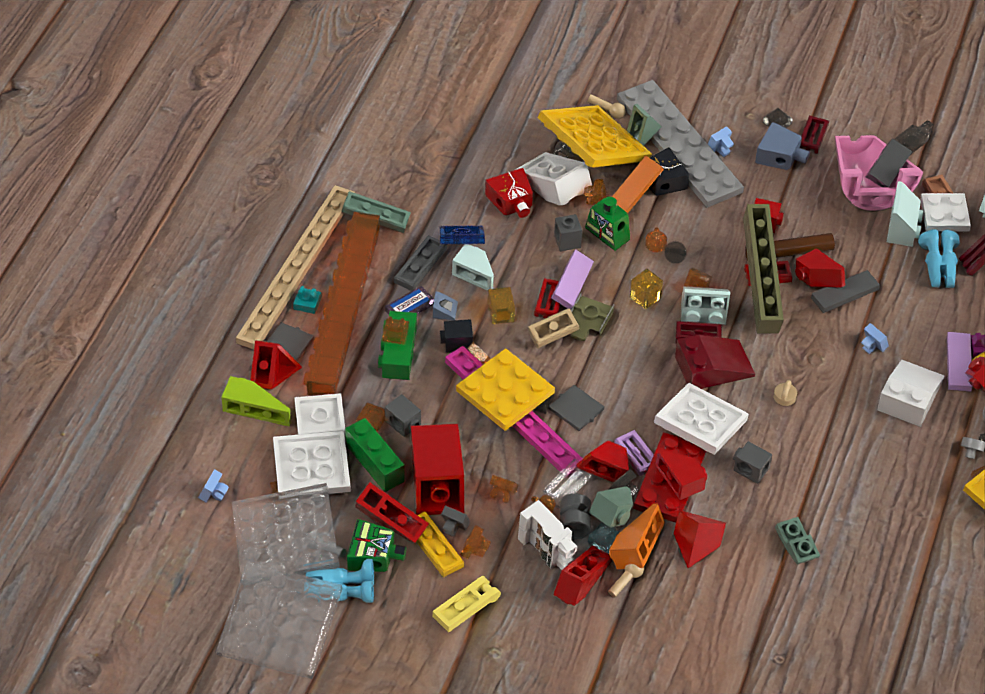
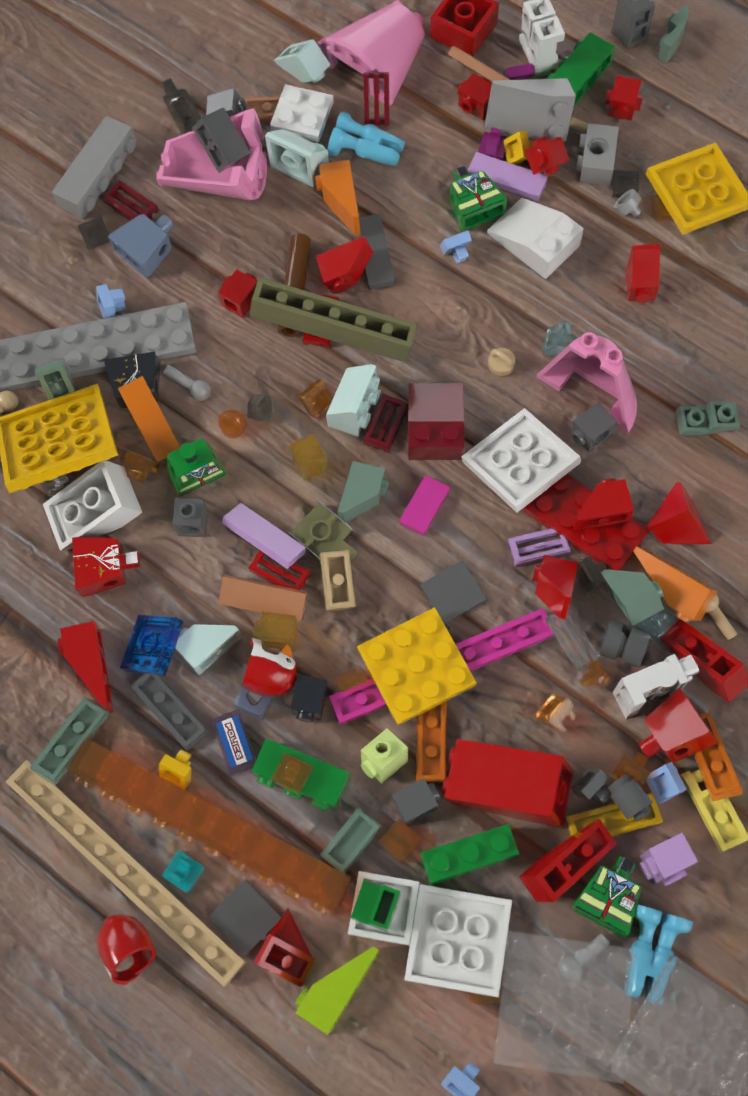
camera: 65 degrees left, 20 degrees up
(249, 272) = (124, 937): none -> red piece
(318, 404) = (376, 905): none -> green piece
(362, 389) = (351, 841): none -> sand green tile
(378, 275) = (176, 770): none -> yellow tile
(412, 570) = (667, 860): none -> lavender brick
(429, 386) = (383, 756): none -> yellowish green brick
(439, 204) = (85, 652): none -> red slope
(451, 539) = (630, 798): none -> dark grey brick
(465, 416) = (432, 744): none -> orange tile
(466, 303) = (269, 673): none -> red piece
(473, 564) = (665, 783): none -> light blue tile
(505, 589) = (717, 767): none -> orange tile
(519, 559) = (676, 729): none -> red torso
(524, 291) = (262, 597): none -> nougat tile
(632, 328) = (362, 490): none -> sand green slope
(639, 372) = (424, 505): none -> dark pink tile
(676, 215) = (199, 389): none -> light grey bar
(793, 450) = (601, 364): none -> bright pink cone
(820, 423) = (558, 338): none -> clear light blue tile
(832, 102) = (94, 167): none -> light grey brick
(886, 251) = (339, 193): none -> orange slope
(905, 463) = (643, 273): none -> red slope
(922, 340) = (475, 199): none -> torso
(926, 162) = (229, 99): none -> brick

